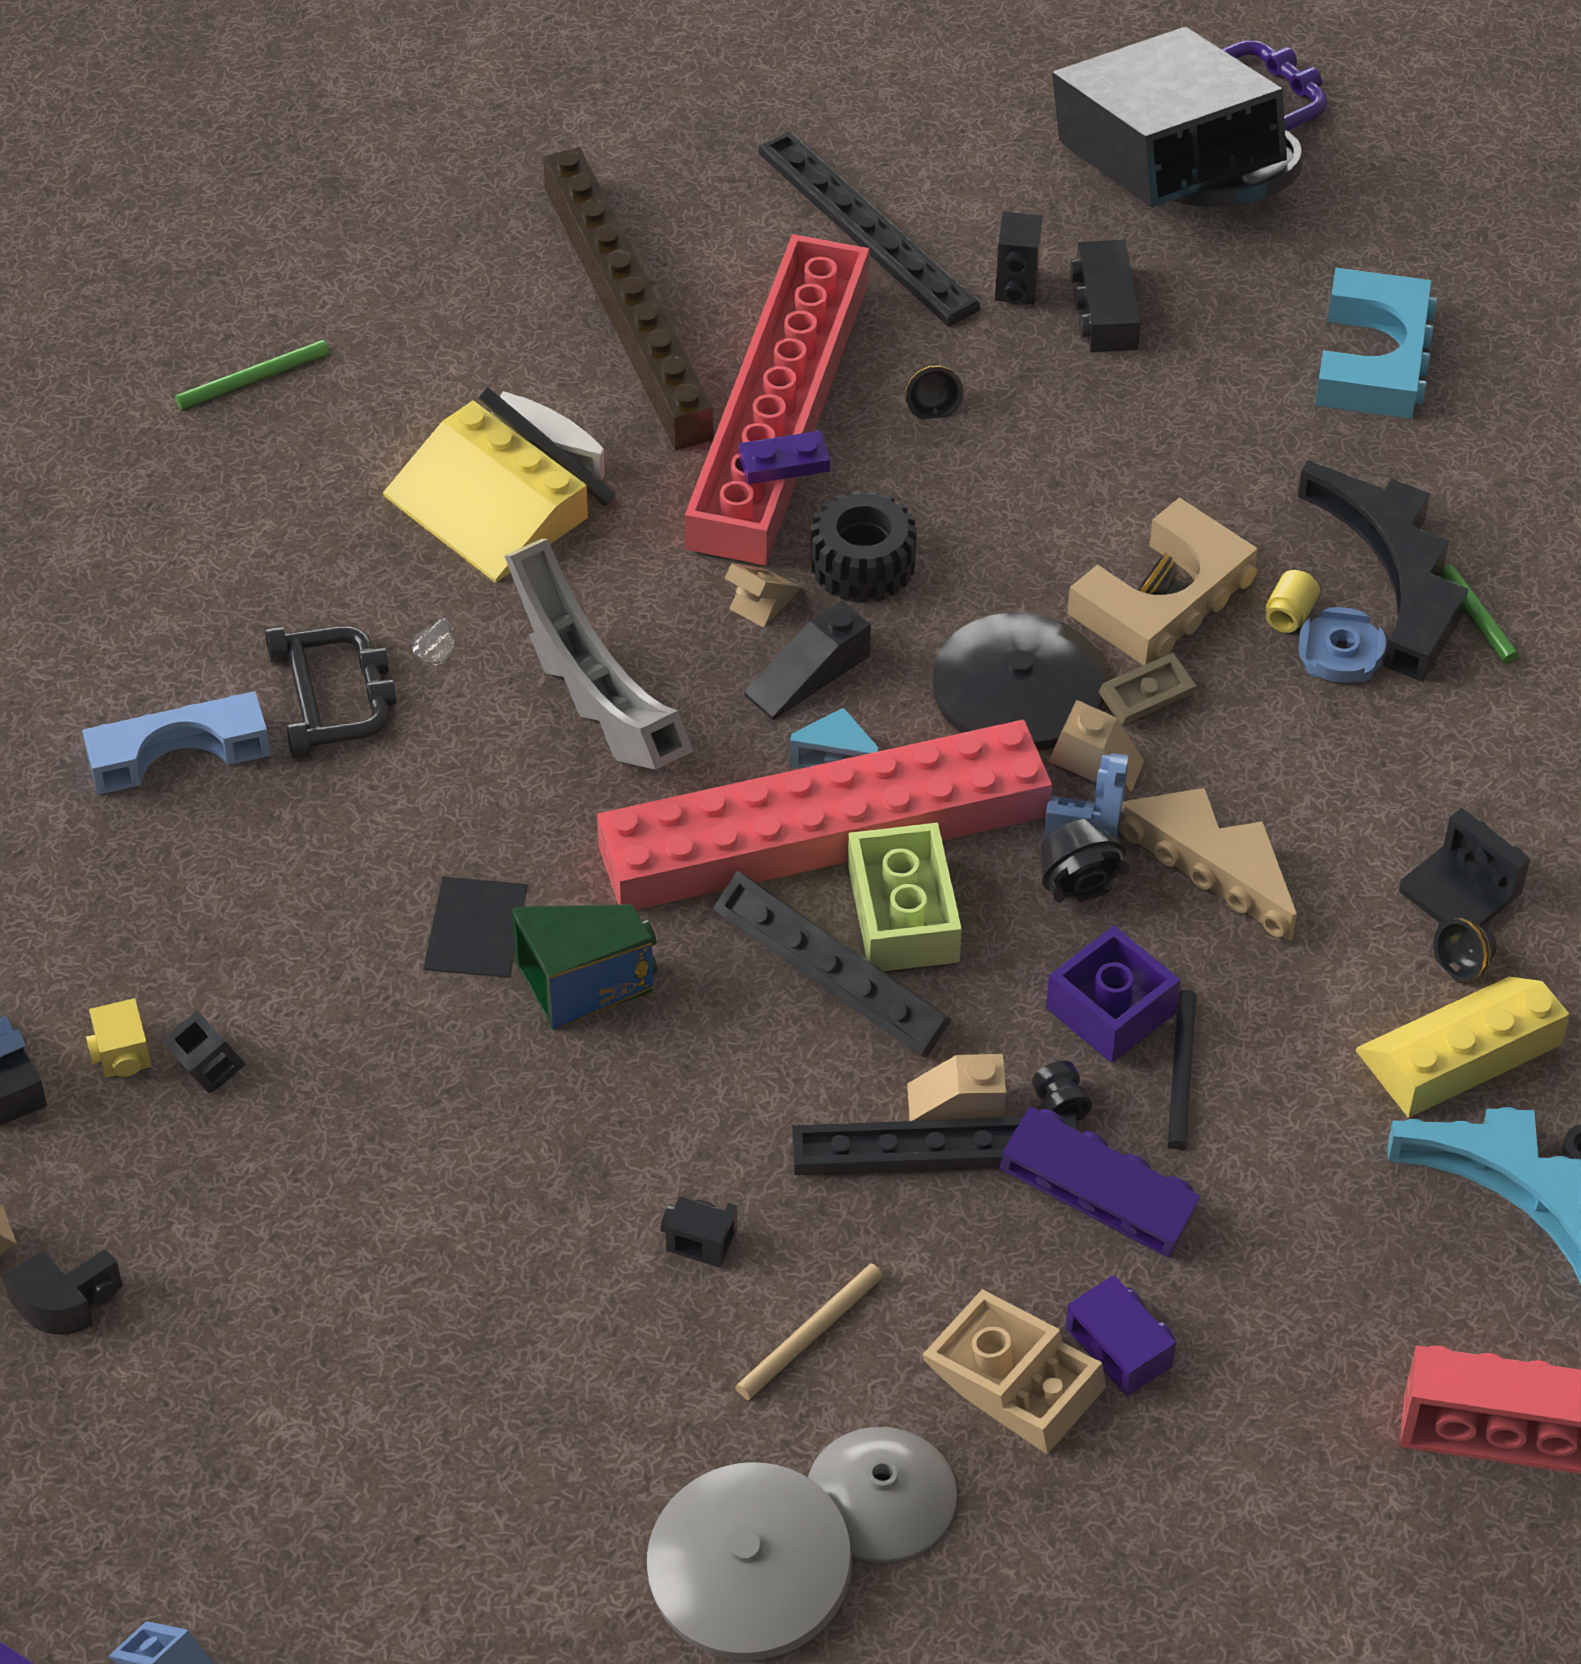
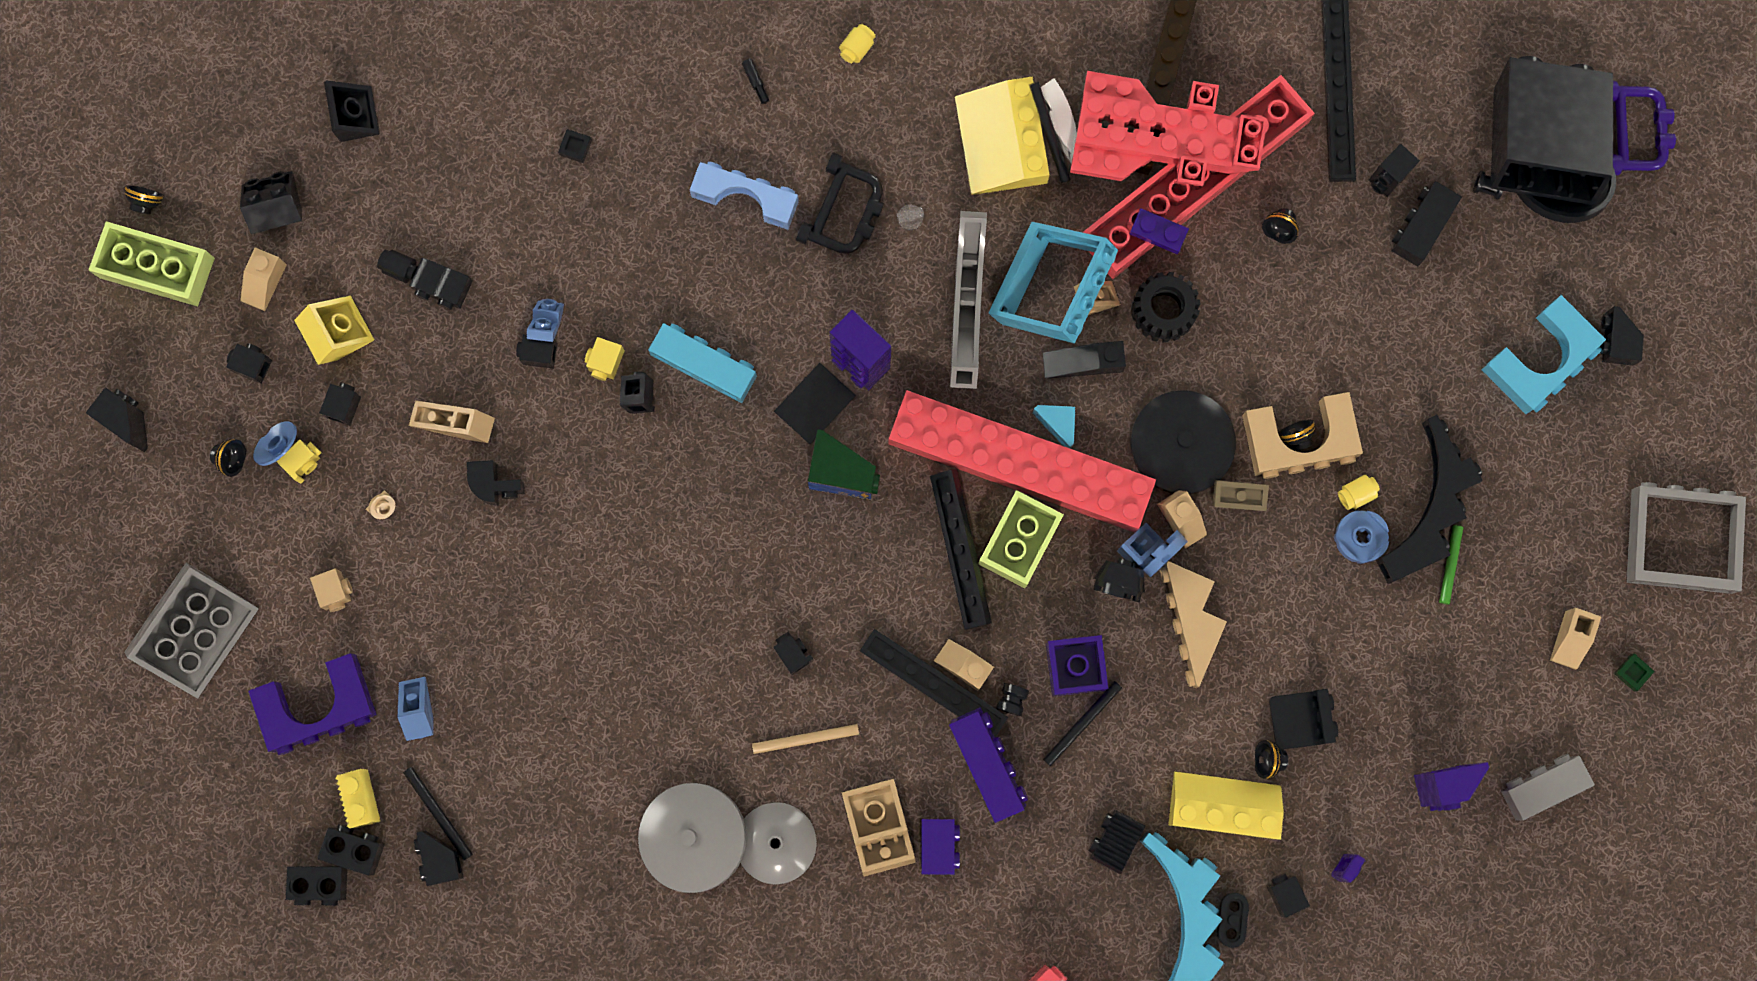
camera: 35 degrees right, 30 degrees up
(86, 618) = (755, 80): none -> black pin
(200, 502) = (857, 44): none -> light yellow brick
(272, 962) = (702, 362): none -> medium azure brick
(496, 787) = (859, 351): none -> dark purple brick
(647, 384) = (1189, 137): none -> coral piece
(662, 538) = (1023, 269): none -> medium azure window
(1145, 223) = (1483, 185): none -> black bush
(1359, 1171) = (1116, 841): none -> black brick
(1455, 277) = (1622, 338): none -> black slope

